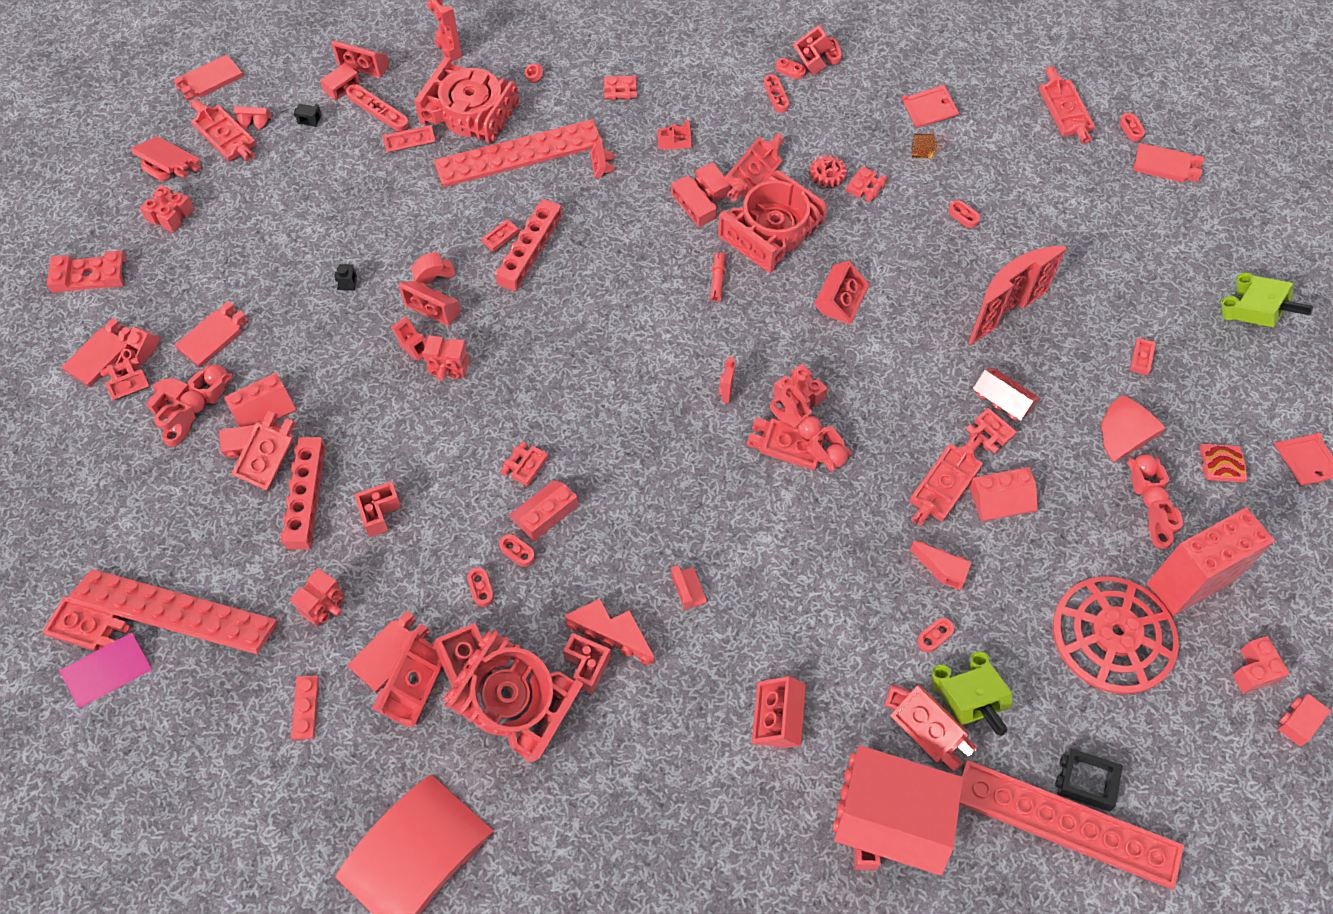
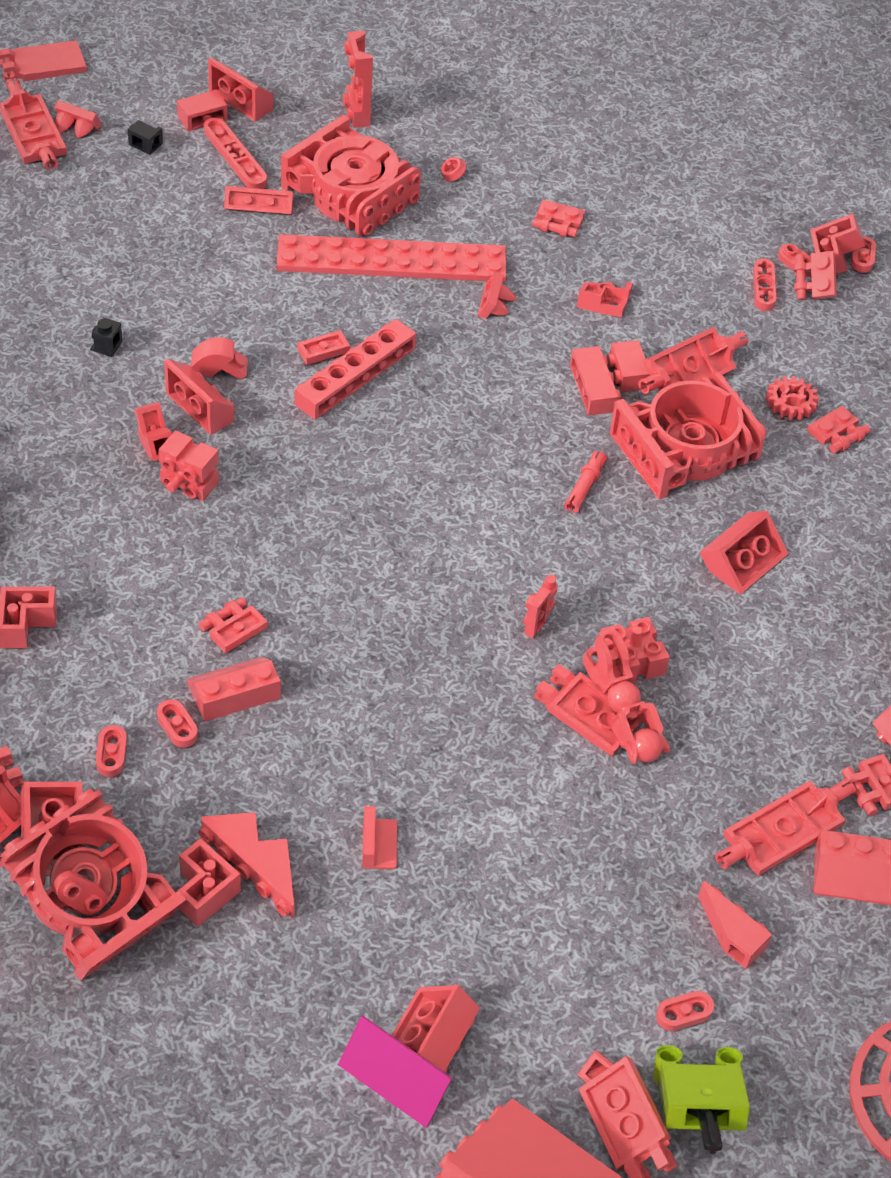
camera: 15 degrees right, 10 degrees down
(509, 707) = (82, 893): none -> coral plate
(769, 751) = (394, 1071): none -> dark pink piece
(814, 76) = (822, 275): none -> coral plate

